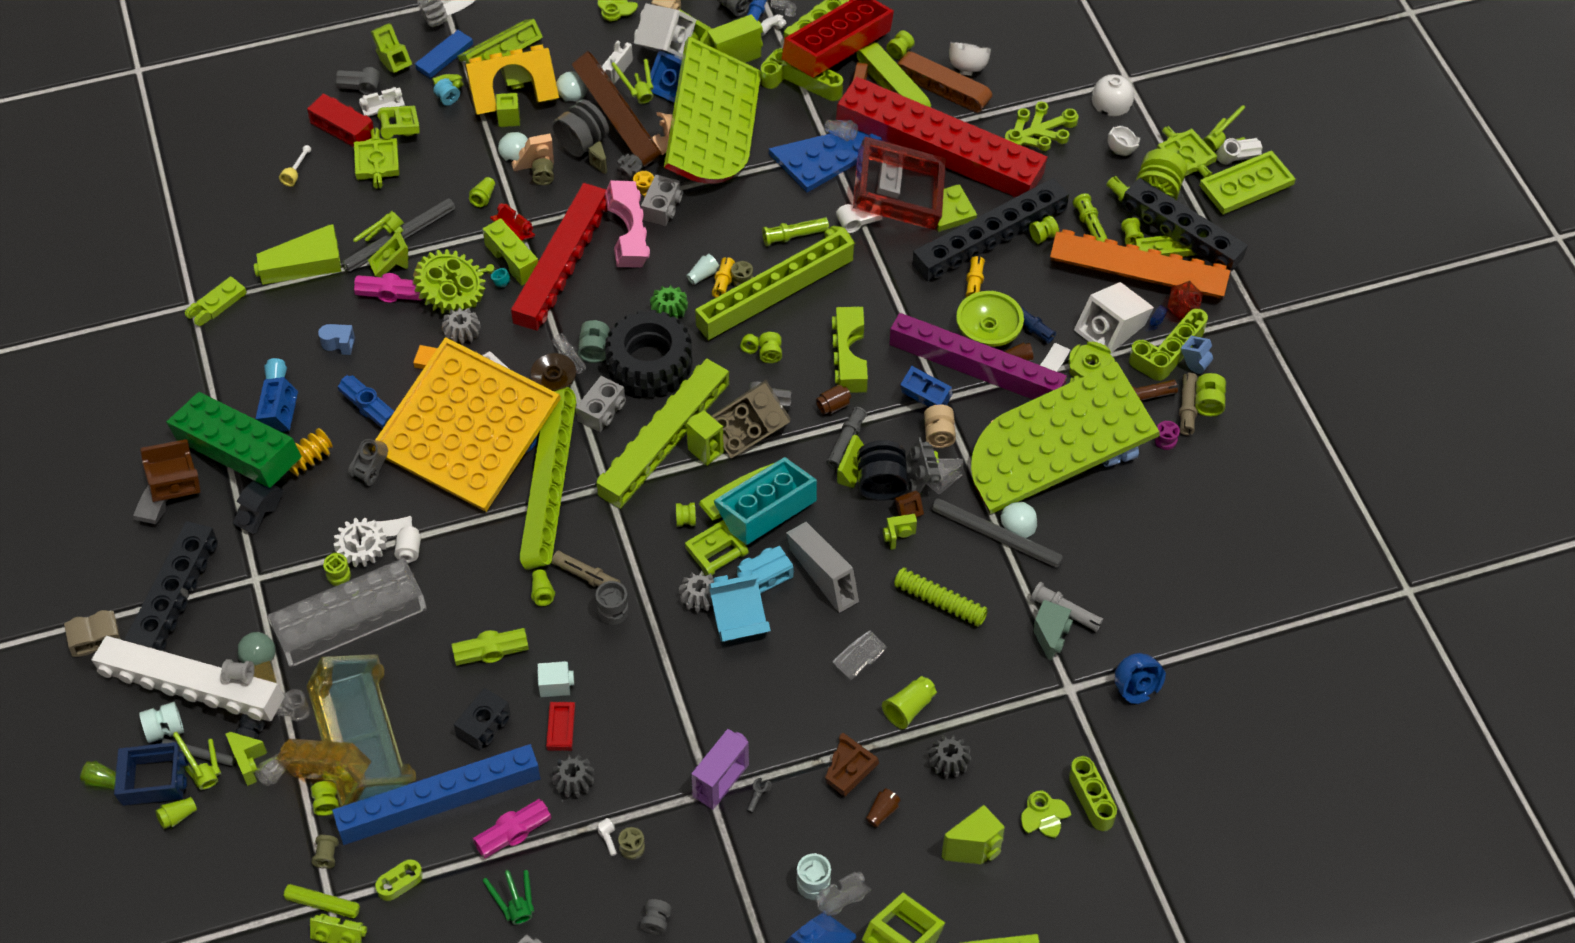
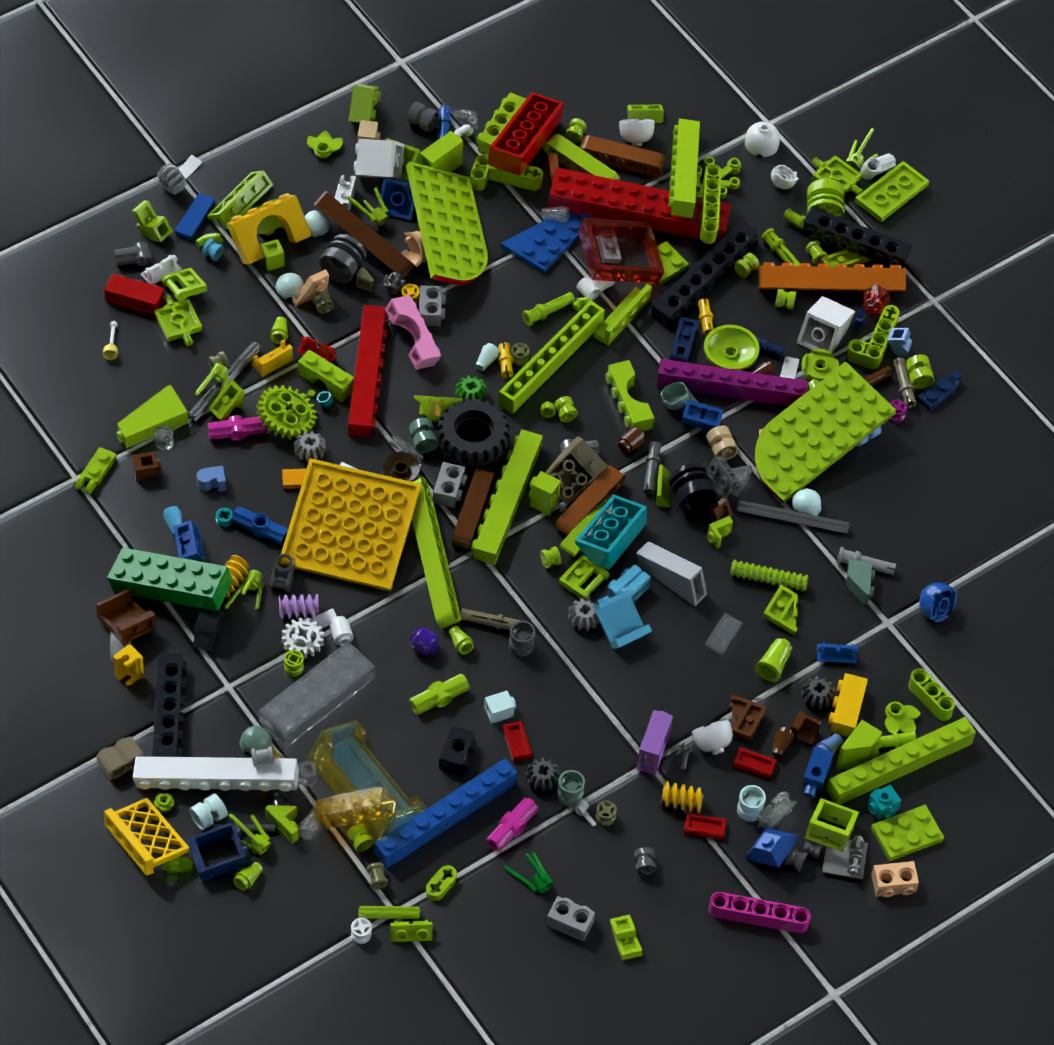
camera: 20 degrees left, 0 degrees up
(57, 740) = (132, 840): none -> yellow fence
(122, 703) = (164, 807): none -> lime plate
(145, 526) = (128, 662): none -> yellow hinge
(270, 307) = (146, 465): none -> reddish brown brick
(274, 910) = (364, 926): none -> white wheel
(305, 281) = (160, 434): none -> clear wheel
(331, 378) = (222, 521): none -> teal bush
(331, 464) = (252, 582): none -> lime plant
(368, 506) = (298, 606): none -> lavender piece
(401, 210) = (219, 358): none -> olive wheel
(462, 223) = (273, 359): none -> yellow hinge
(497, 579) = (424, 641): none -> dark purple head
(598, 800) = (571, 788): none -> sand green wheel
(617, 309) = (435, 406): none -> lime hat
(619, 433) = (473, 508): none -> reddish brown beam
(731, 848) = (682, 797): none -> yellow piece
(748, 890) = (705, 826): none -> red tile
(783, 443) = (598, 491): none -> dark orange beam
(797, 780) = (713, 737): none -> white cylinder
(840, 825) = (754, 763): none -> red tile
(879, 255) = (623, 314): none -> lime fence
(903, 357) = (675, 395): none -> sand green hair
(915, 850) = (817, 772): none -> blue torso
(917, 797) = (805, 728): none -> reddish brown panel
(935, 829) = (830, 744): none -> medium blue cone
(939, 298) = (684, 339): none -> dark blue plate
(943, 642) = (783, 609): none -> lime wing
(981, 779) = (847, 704): none -> yellow brick
(982, 918) = (884, 802): none -> teal brick
(991, 712) = (836, 653): none -> blue hinge
(997, 43) = (642, 112): none -> lime slope
(1004, 107) = (684, 168): none -> lime brick
(1019, 150) = (710, 204): none -> lime beam
(1023, 869) = (900, 761): none -> lime brick
(1028, 840) = (896, 740): none -> lime pin
(1076, 277) = (785, 299): none -> lime wheel
(1229, 422) = (940, 391): none -> dark blue hinge

